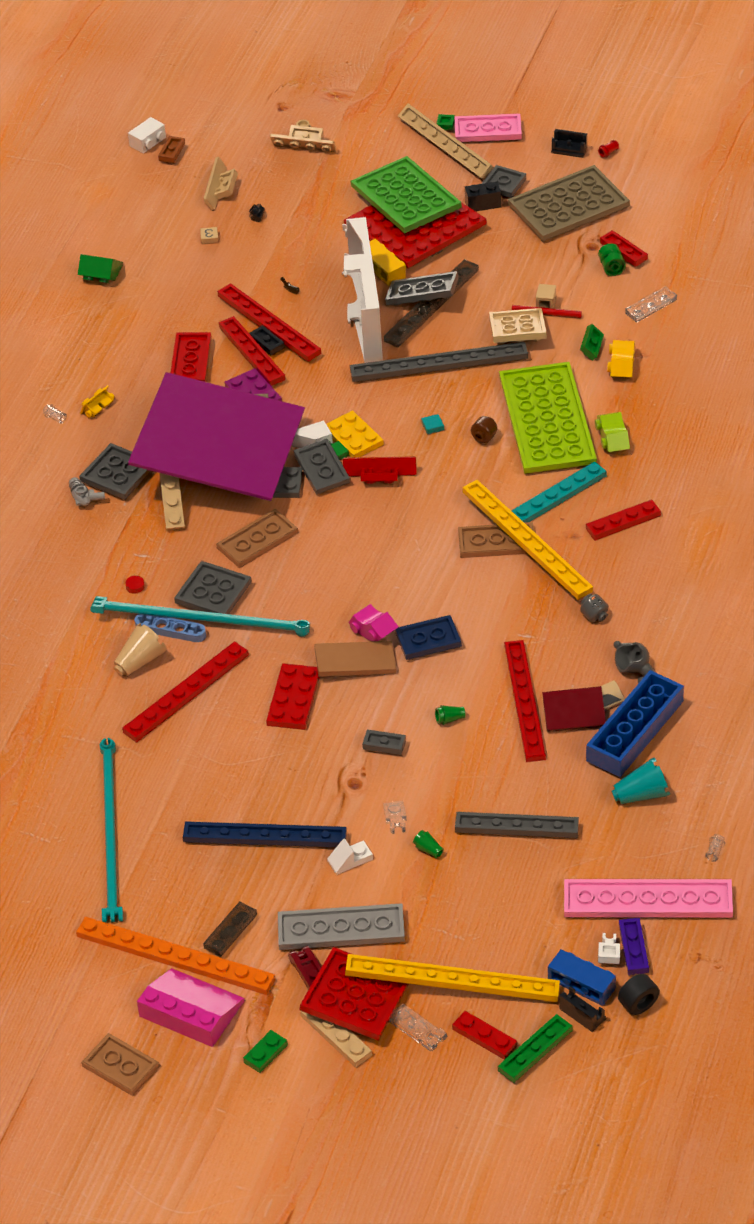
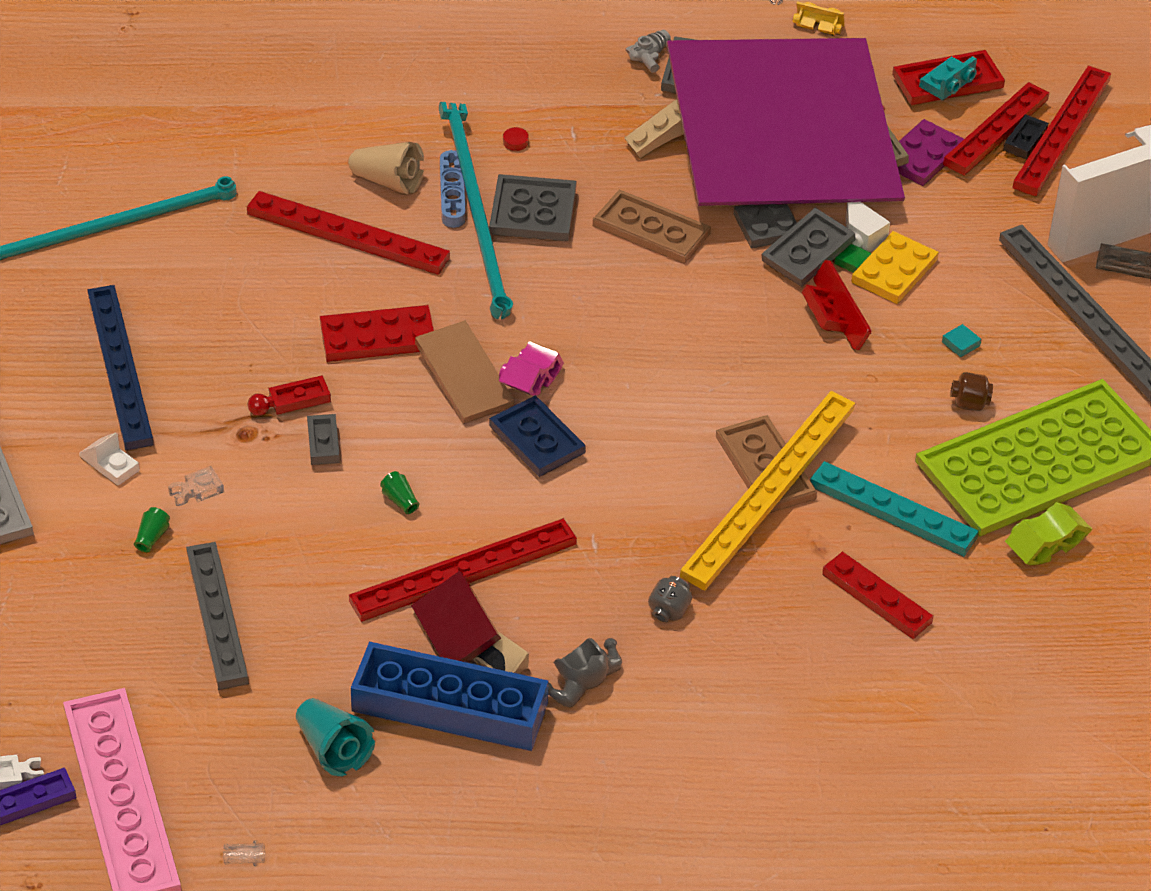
camera: 65 degrees right, 0 degrees up
(199, 354) = (949, 77): none -> teal bracket
(337, 750) = (291, 396): none -> red plate

